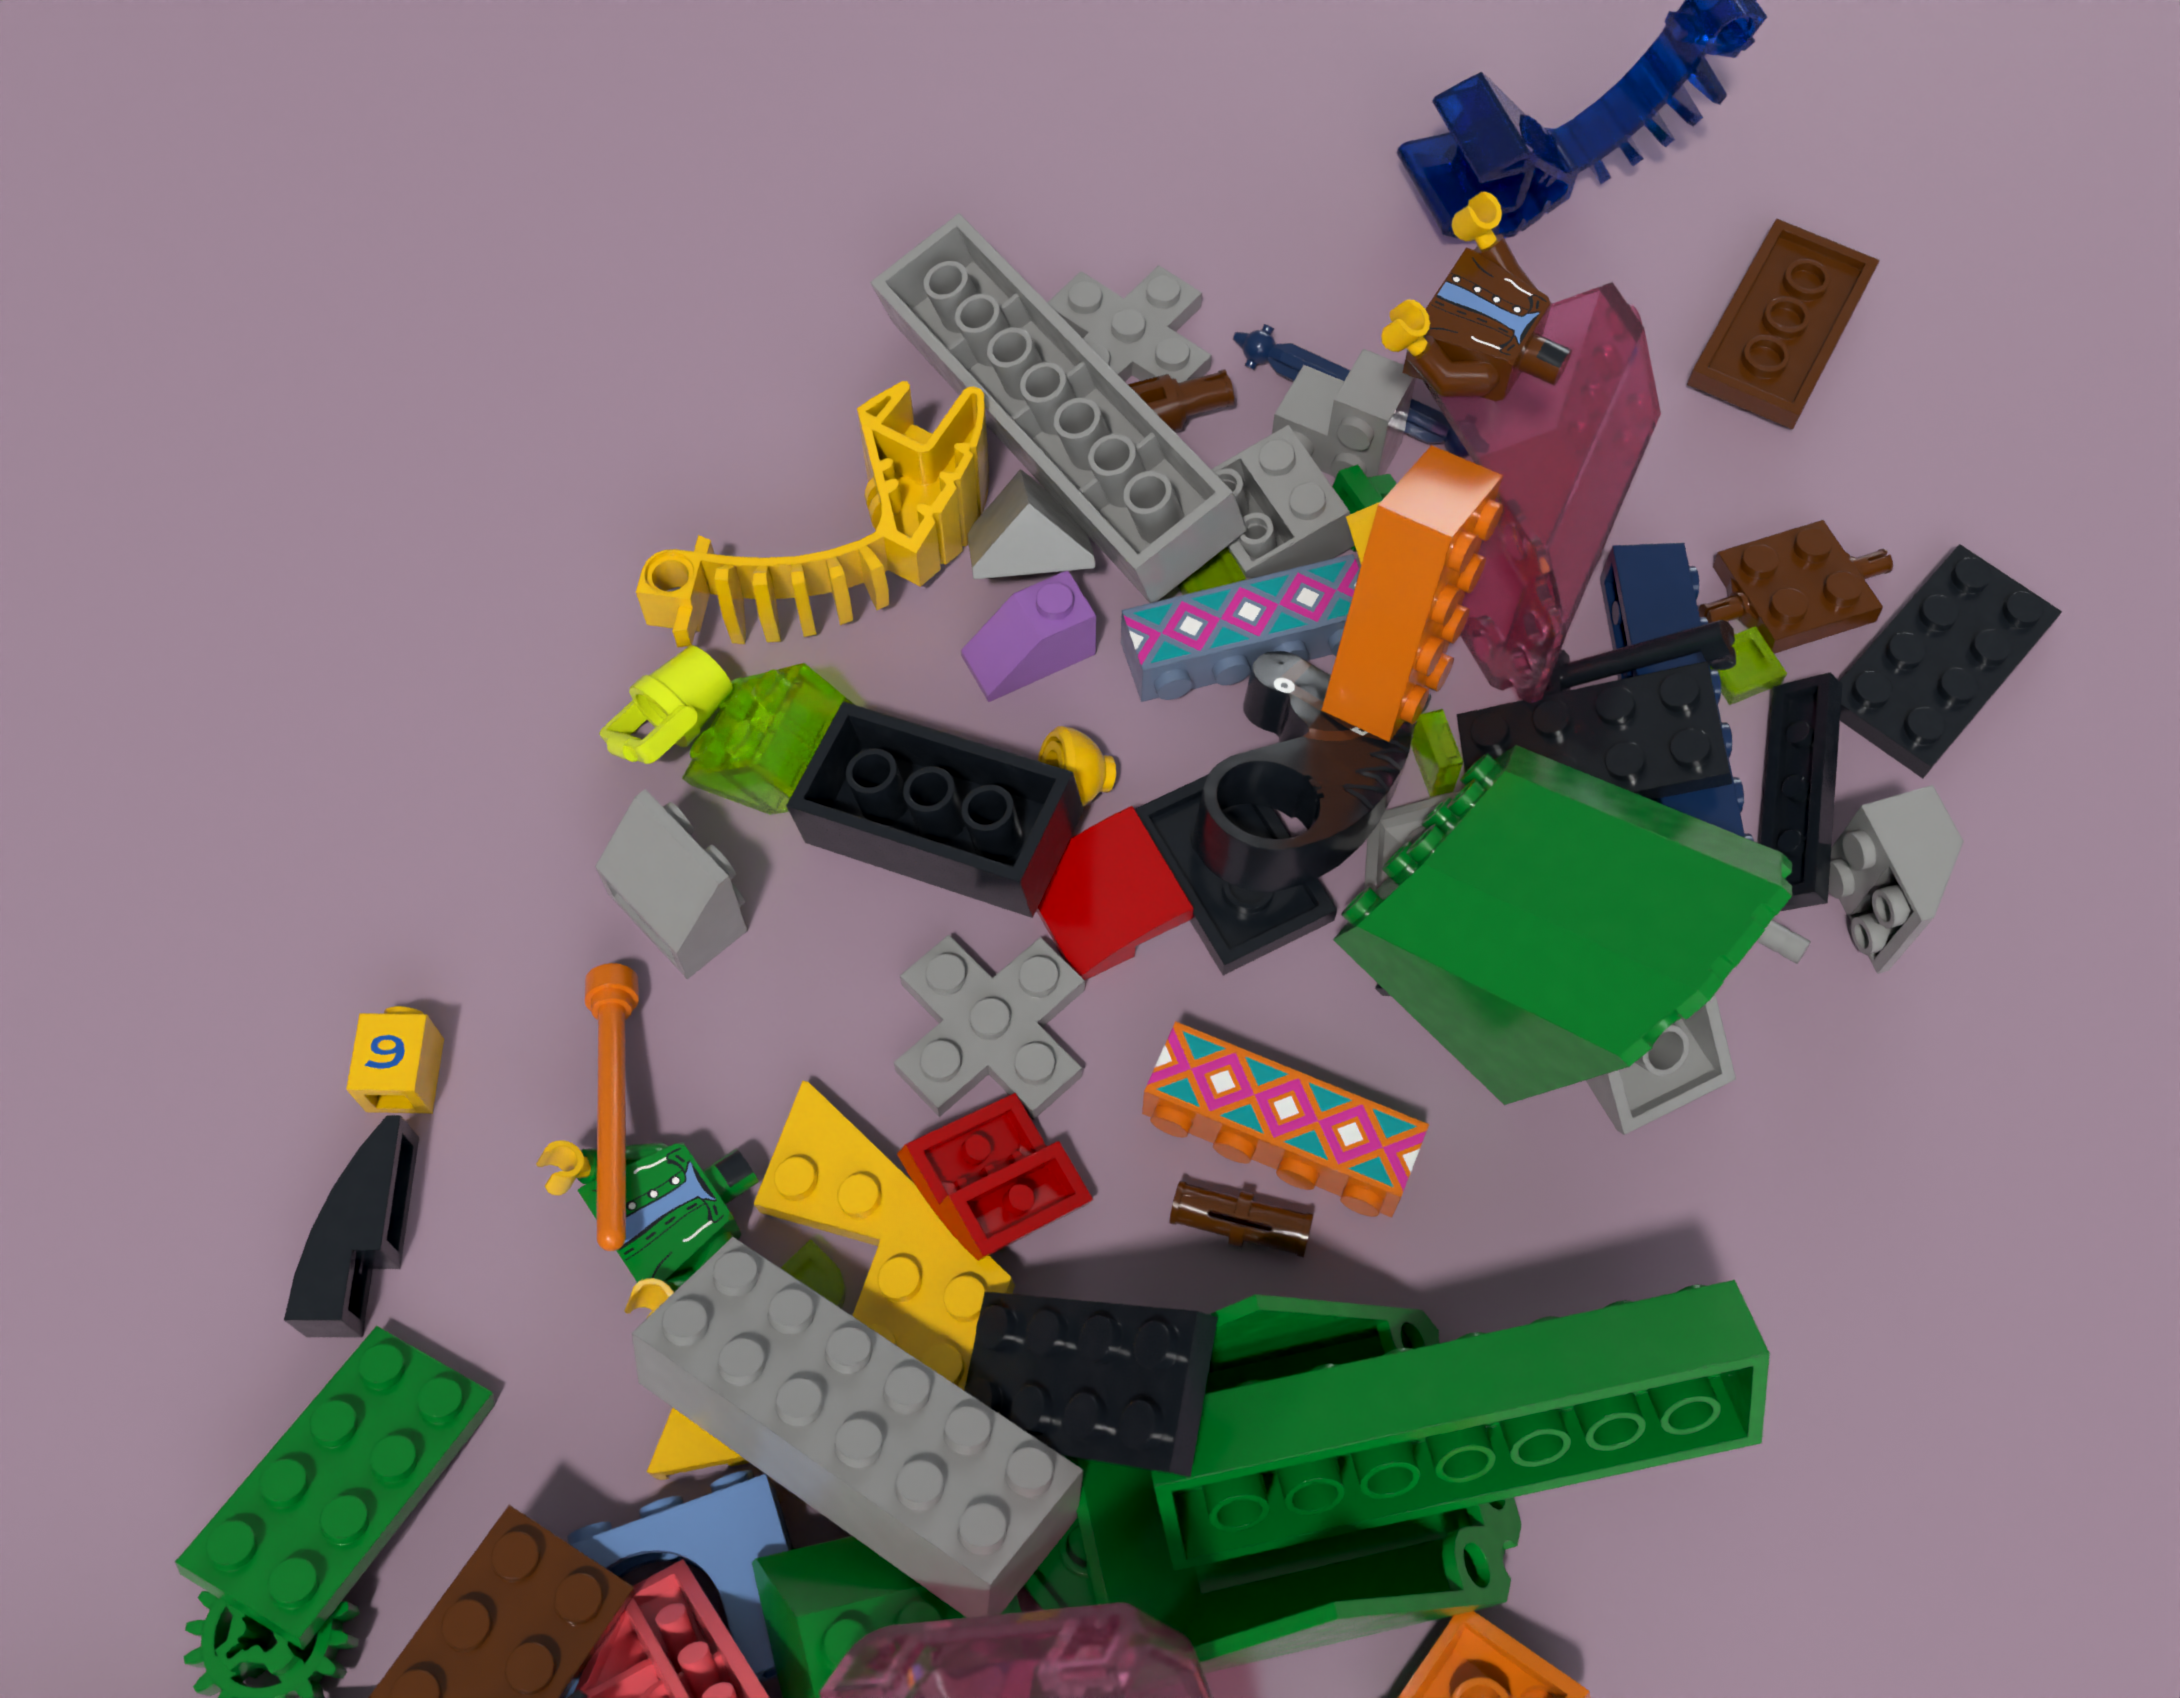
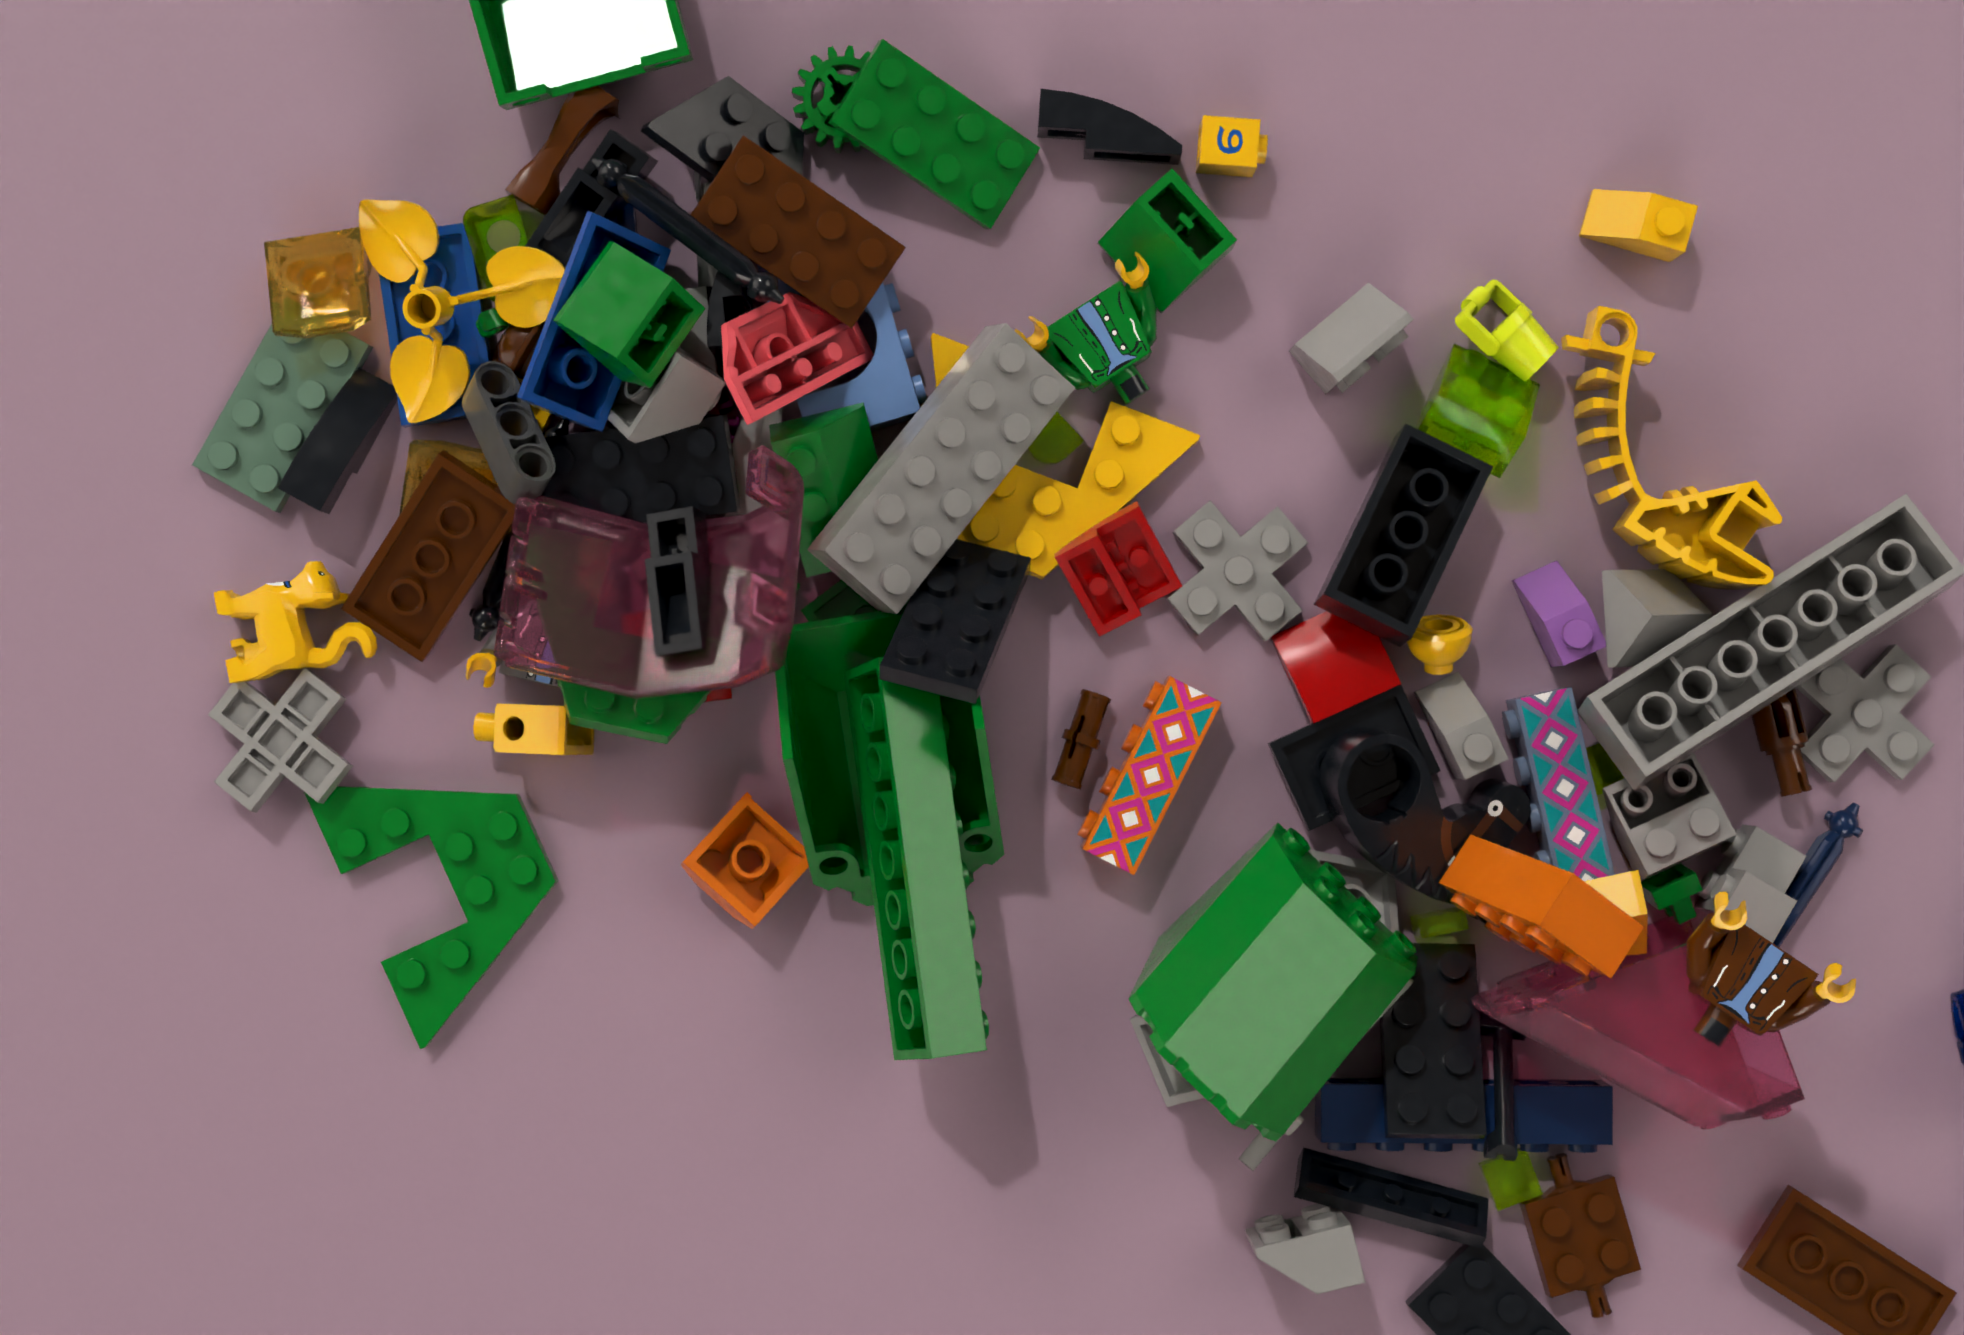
camera: 90 degrees right, 25 degrees up
(503, 1122) = (1172, 234): none -> green slope
(534, 572) = (1639, 222): none -> yellow slope
(611, 998) = (1271, 297): orange piece -> none
(1183, 738) = (1461, 727): none -> light grey slope

